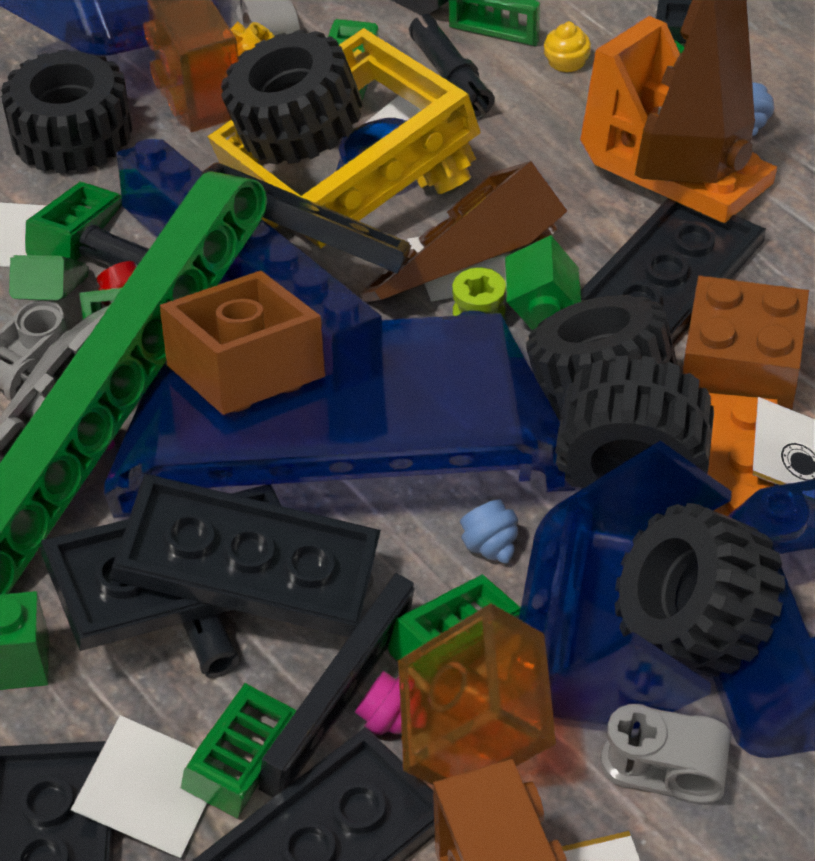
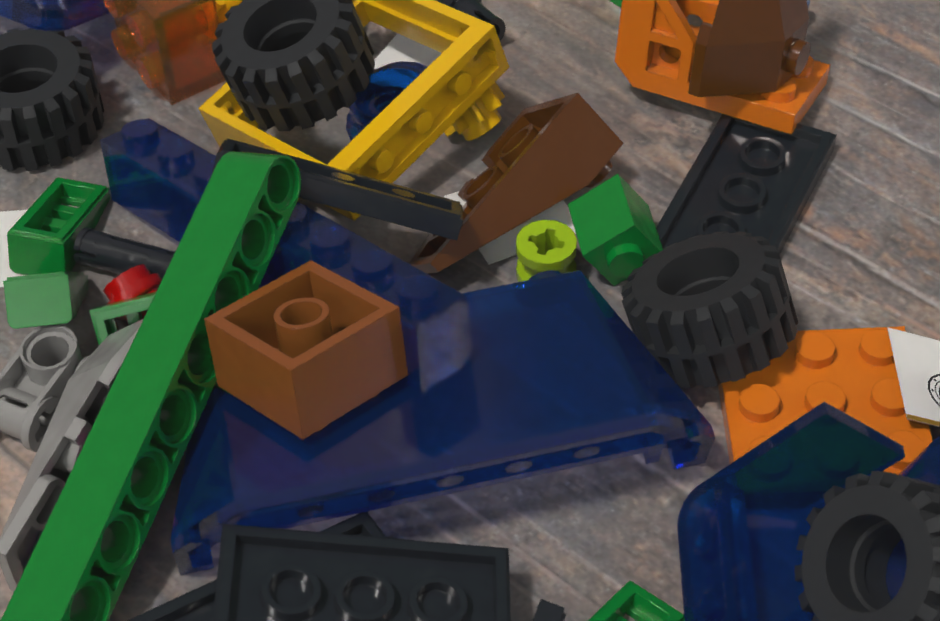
camera: 10 degrees left, 0 degrees up
(490, 531) = (632, 527): medium blue plate -> none
(627, 409) = (770, 373): black tyre -> none
(746, 338) = (856, 263): dark orange brick -> none

